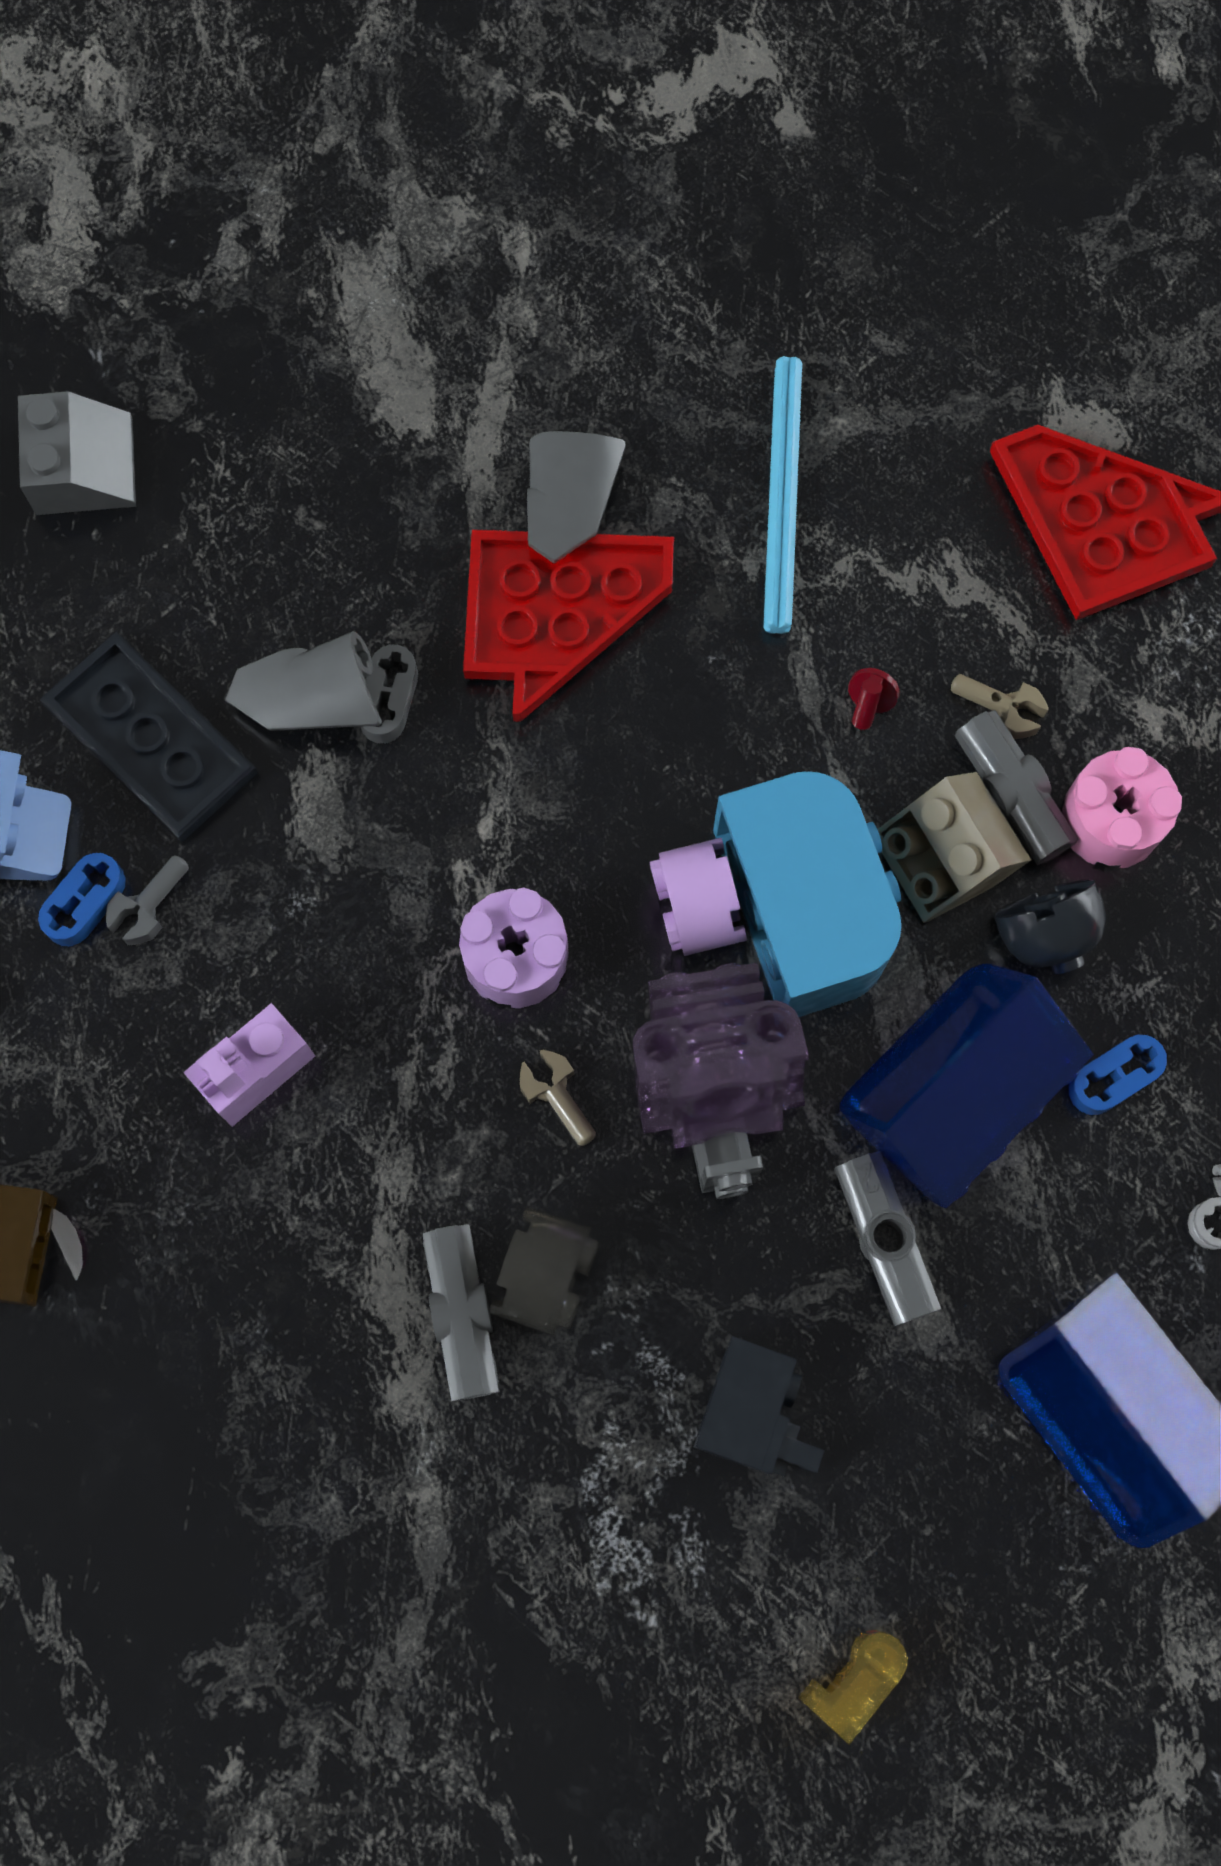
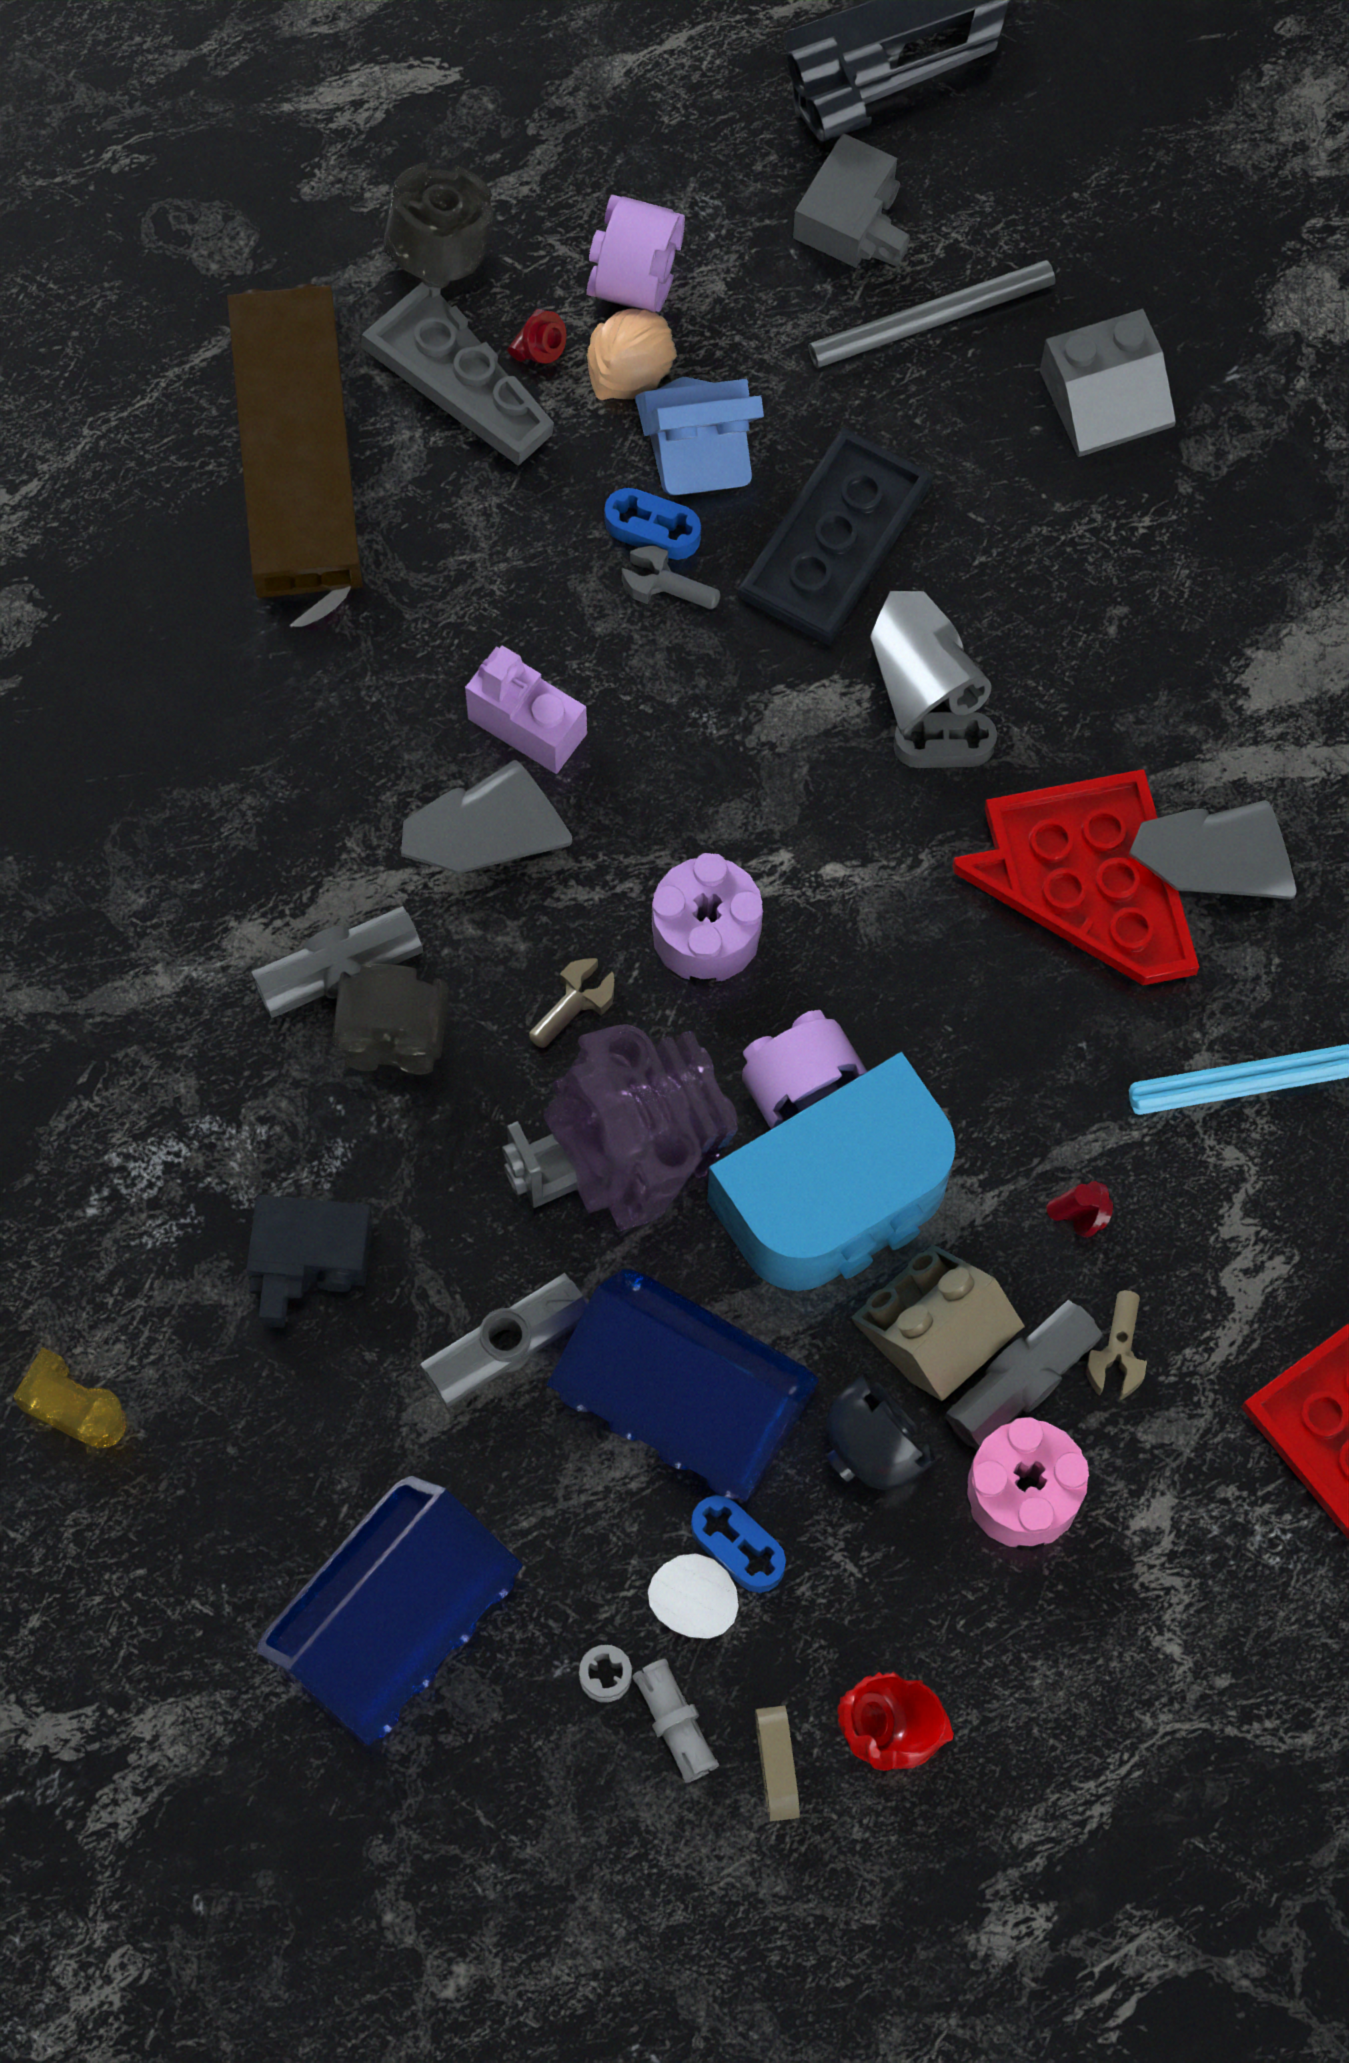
camera: 75 degrees right, 5 degrees down
(357, 1133) = (485, 825): none -> dark grey panel
(1156, 1128) = (694, 1596): none -> white sticker

